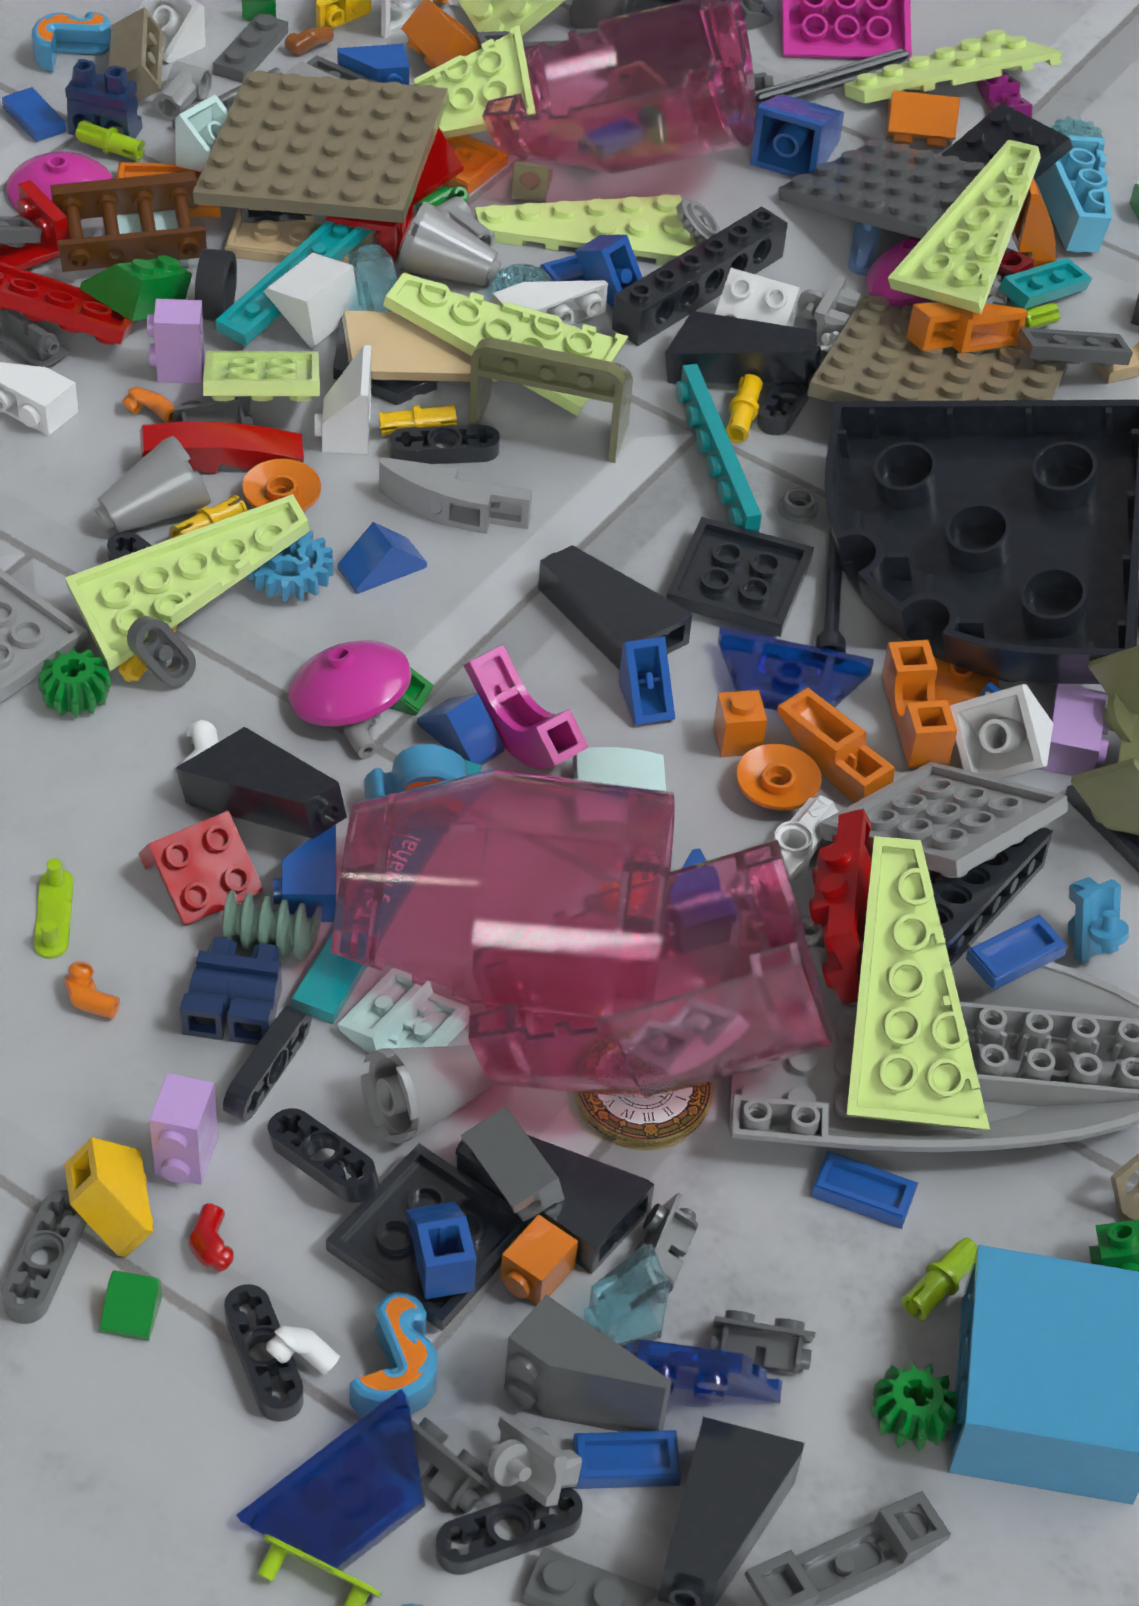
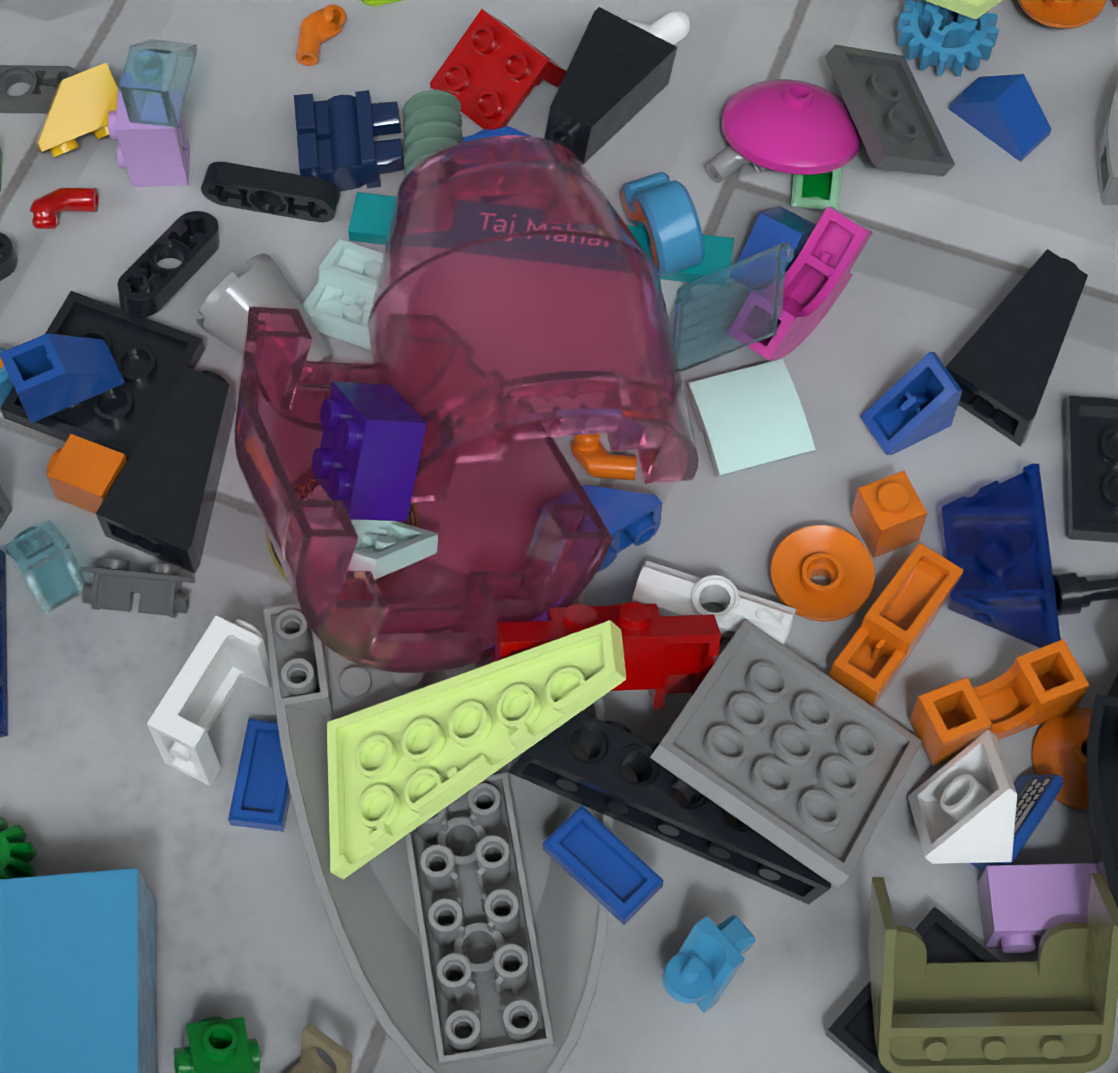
camera: 80 degrees right, 15 degrees up
(165, 1069) = (157, 81): none -> clear light blue slope
(363, 618) = (889, 111): none -> dark grey plate
(514, 1164) = (160, 410): dark grey hinge -> none
(542, 734) = (730, 307): none -> clear light blue piece
(614, 982) = (369, 450): none -> dark purple brick
(781, 1340) = (46, 681): dark grey hinge -> none
(802, 1200) = (200, 692): none -> white panel
(940, 1279) = (160, 870): lime axle -> none

